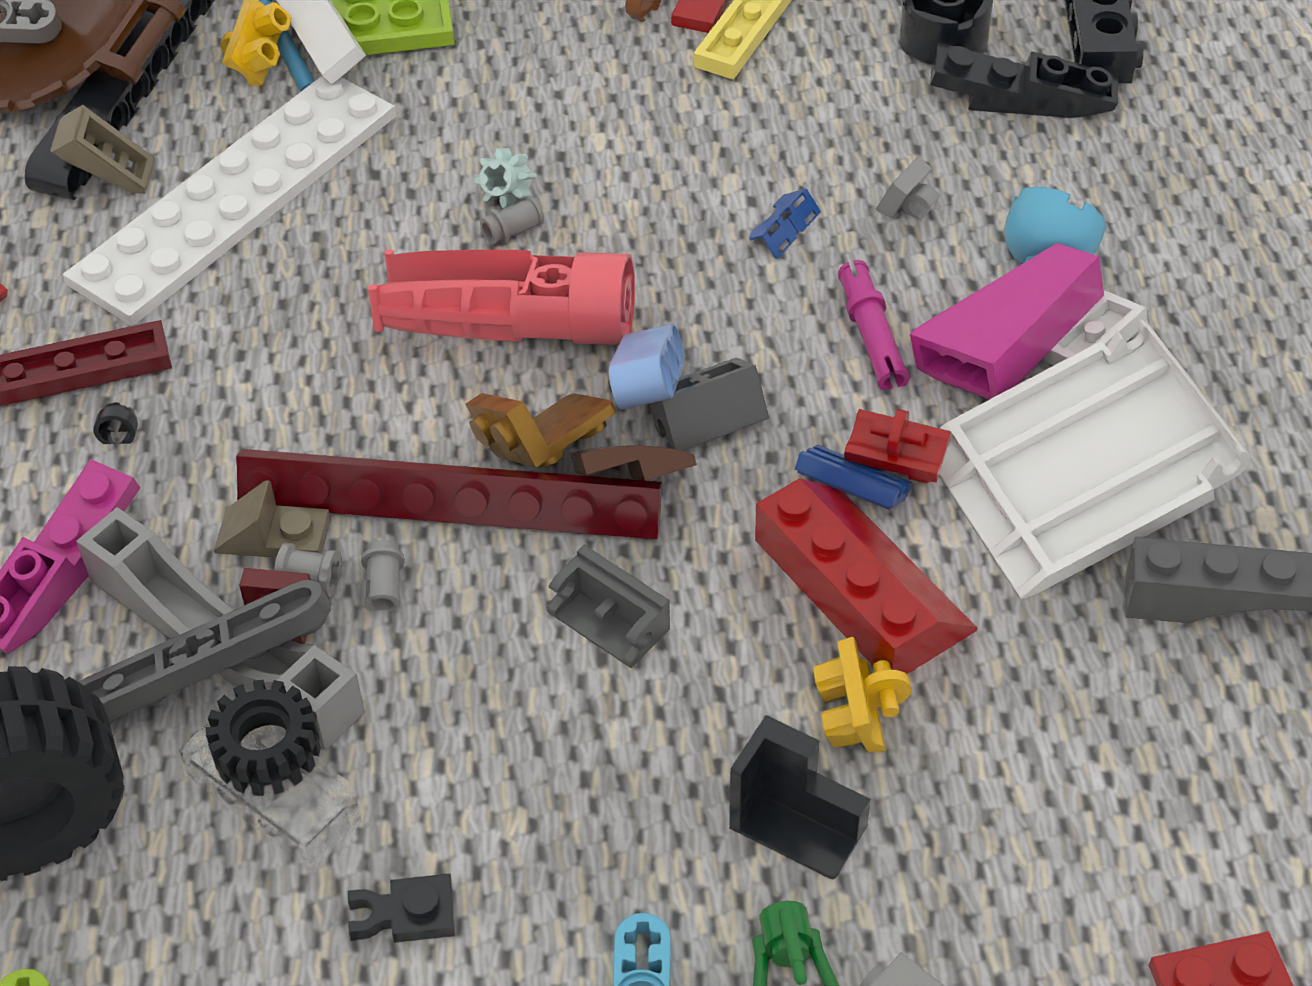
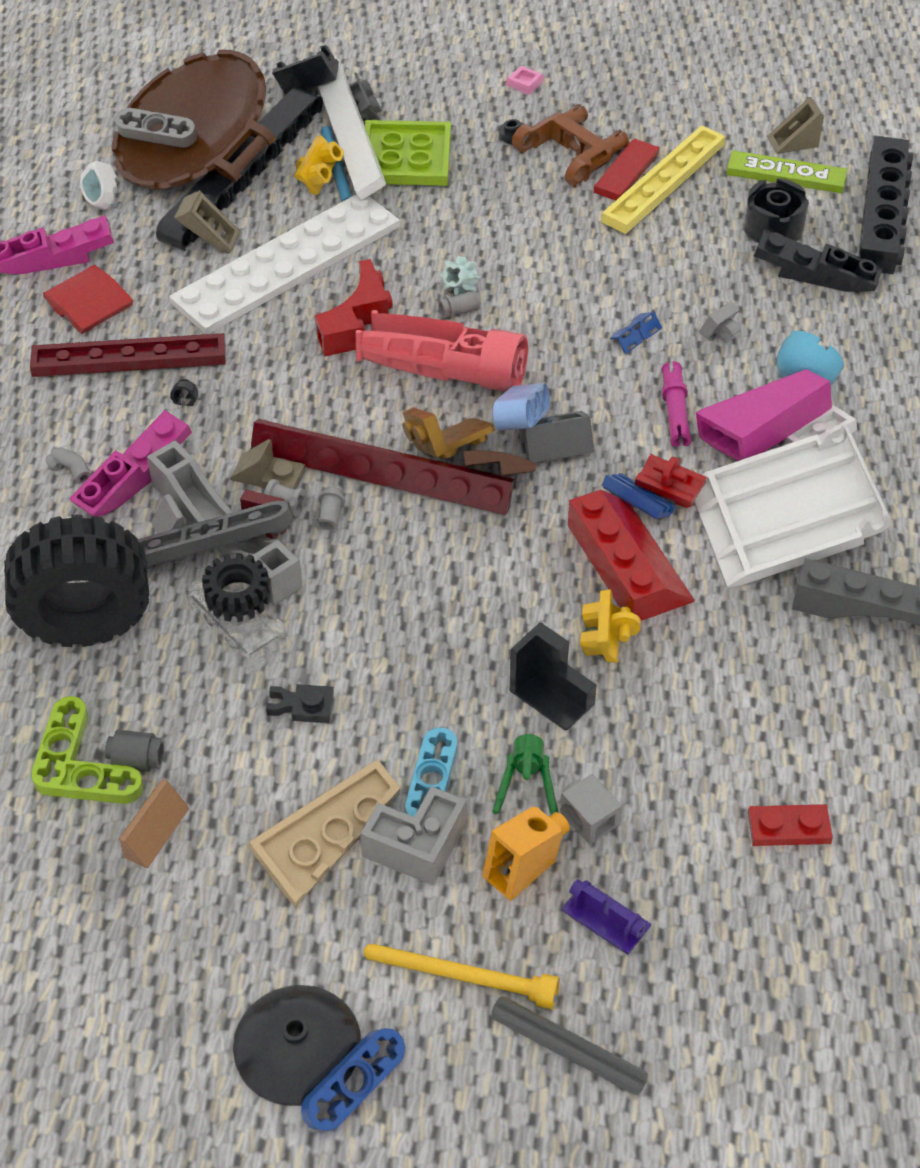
camera: 10 degrees right, 0 degrees up
(126, 632) = (167, 516): none -> light grey slope
(339, 282) = (338, 326): none -> red arch
(609, 606) = (465, 549): dark grey hinge -> none

